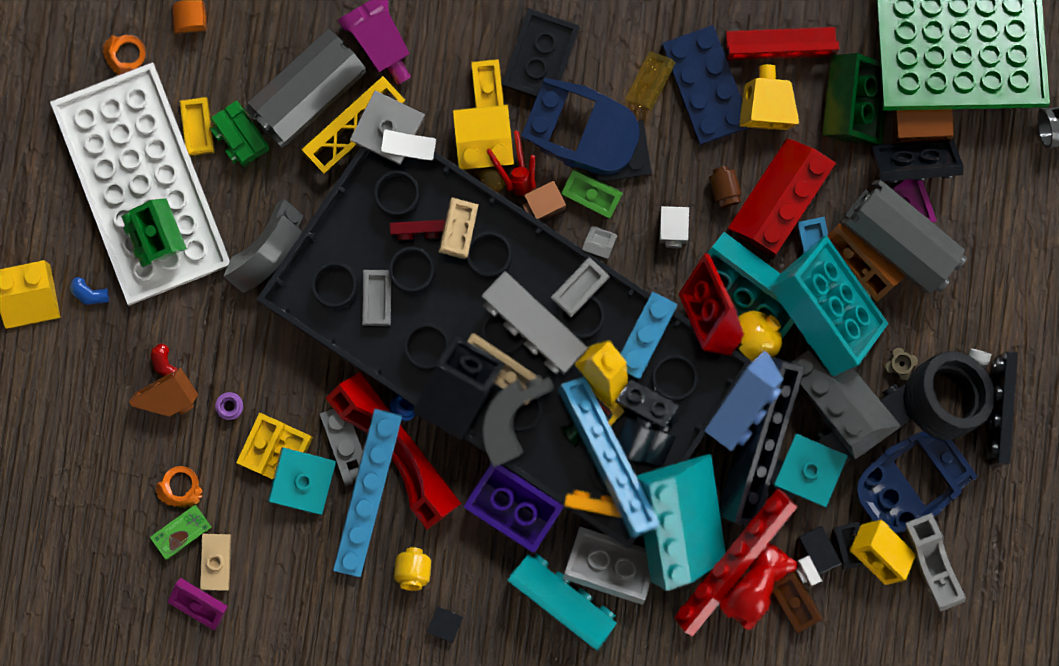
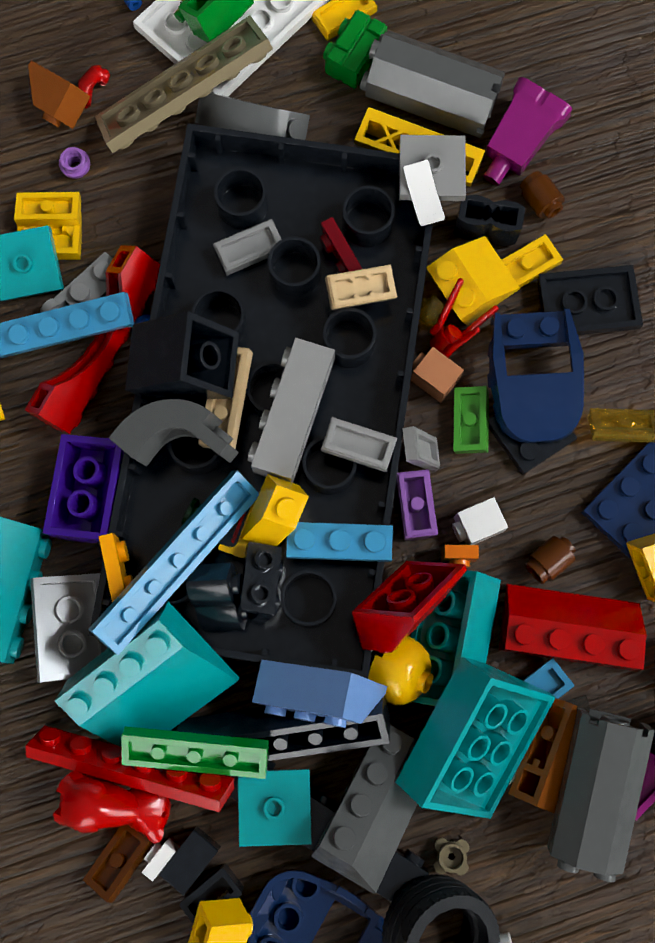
camera: 65 degrees right, 5 degrees down
(213, 288) = (183, 83): none -> dark tan plate
(437, 47) = (542, 195): none -> reddish brown brick
(446, 95) = (496, 220): none -> black brick
(639, 266) = (416, 505): none -> medium lavender brick
(692, 252) = (460, 554): none -> orange plate
(748, 506) = (195, 752): none -> green plate

